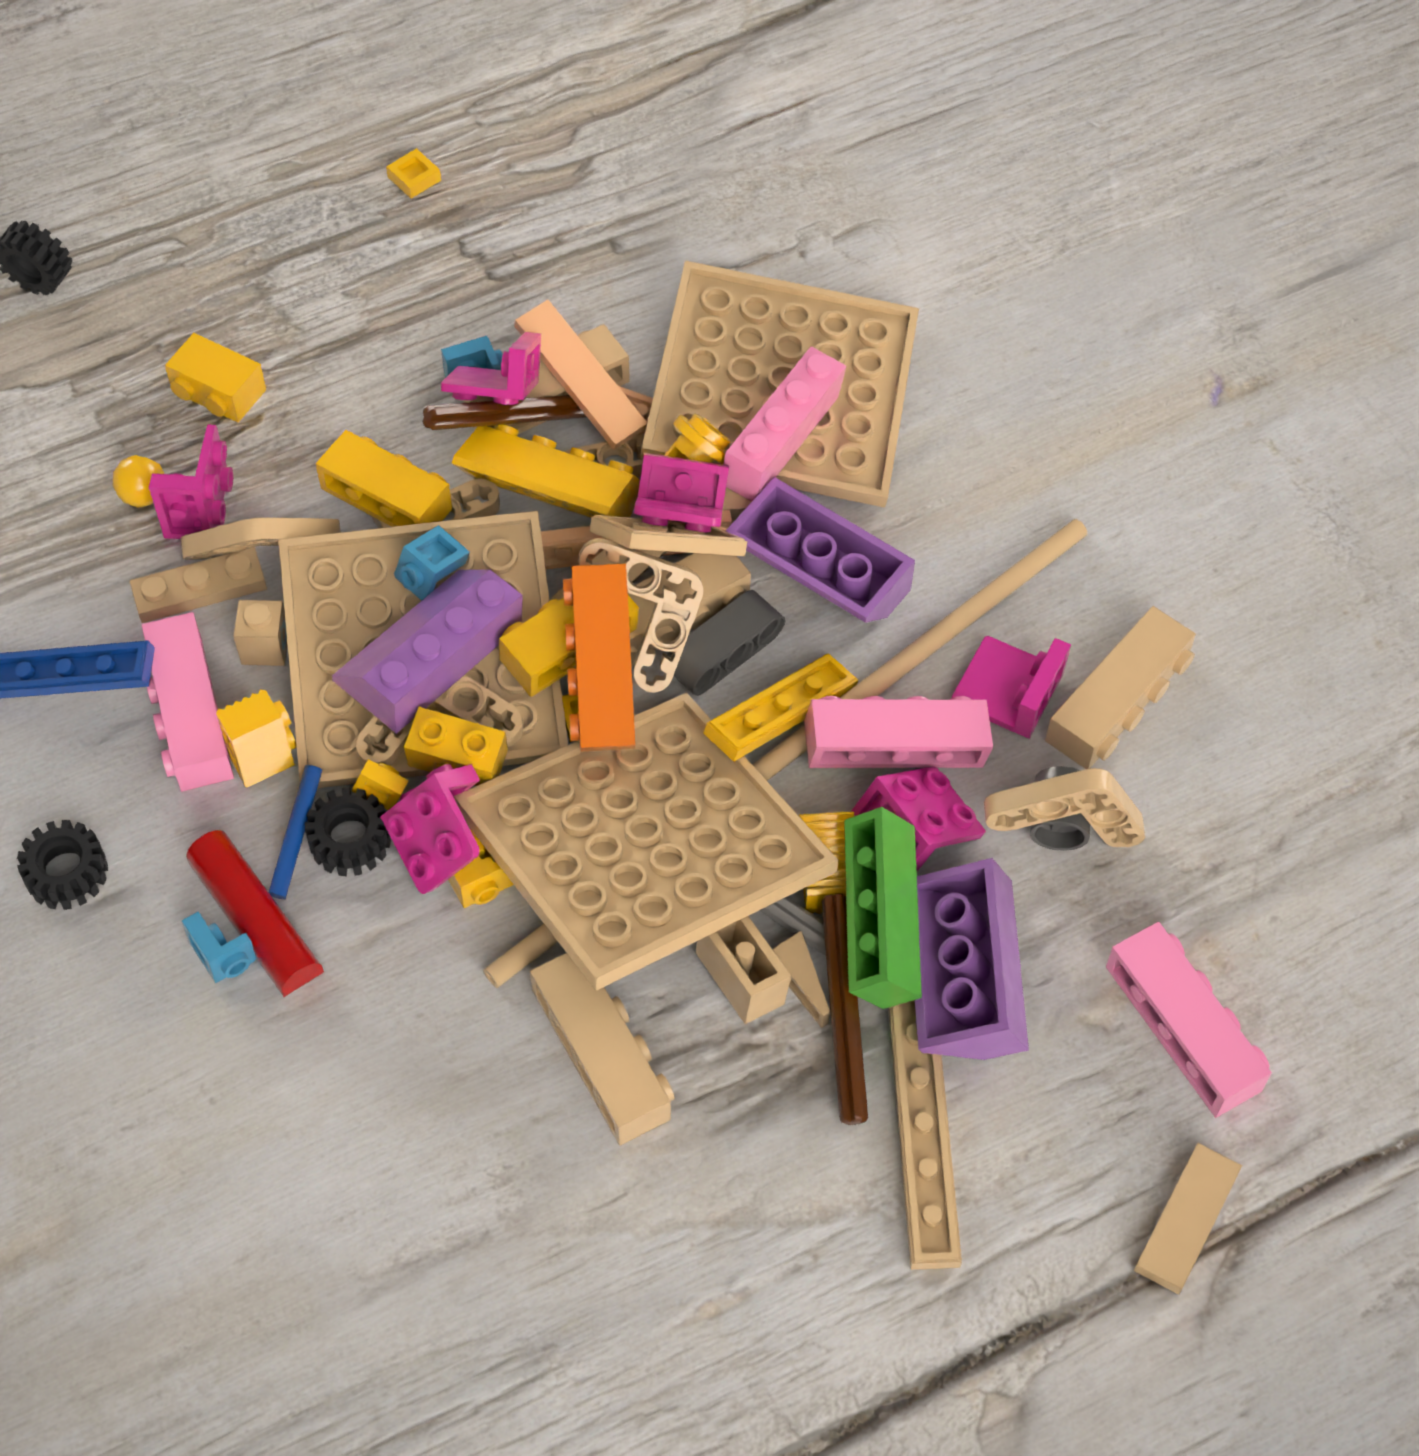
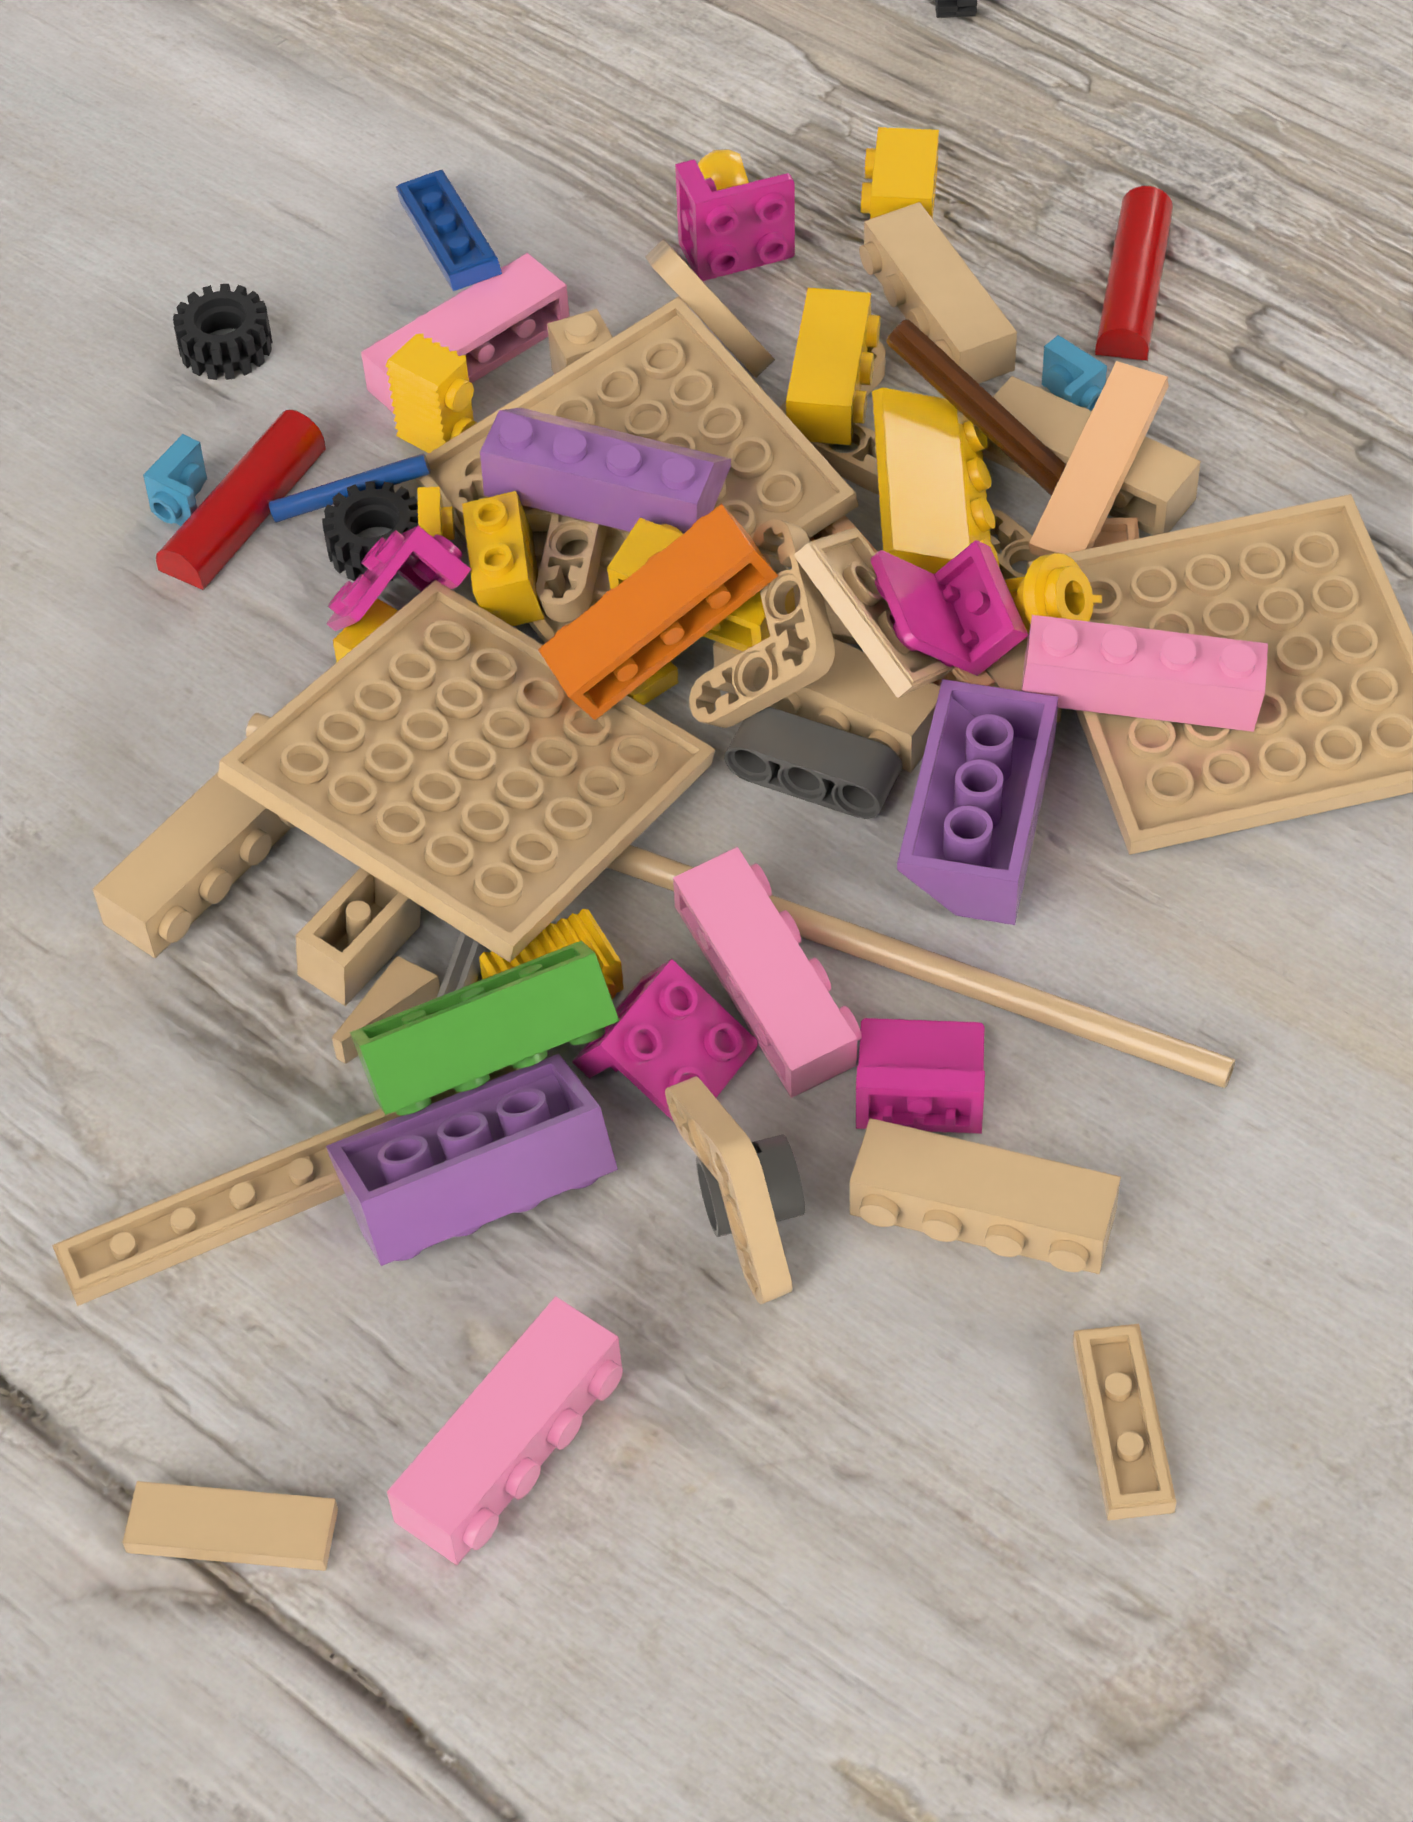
camera: 70 degrees right, 5 degrees down
(198, 585) = (614, 279): tan plate -> none
(341, 401) = (938, 291): none -> tan brick
(390, 293) = (1135, 274): none -> red brick
(413, 173) = (1326, 220): yellow plate -> none
(429, 560) = (720, 422): dark azure bracket -> none
(510, 384) = (1029, 381): dark pink bracket -> none
(777, 707) = (715, 826): yellow tile -> none
(844, 1015) = (305, 1077): reddish brown axle -> none
(1301, 686) = (1124, 1422): none -> tan tile

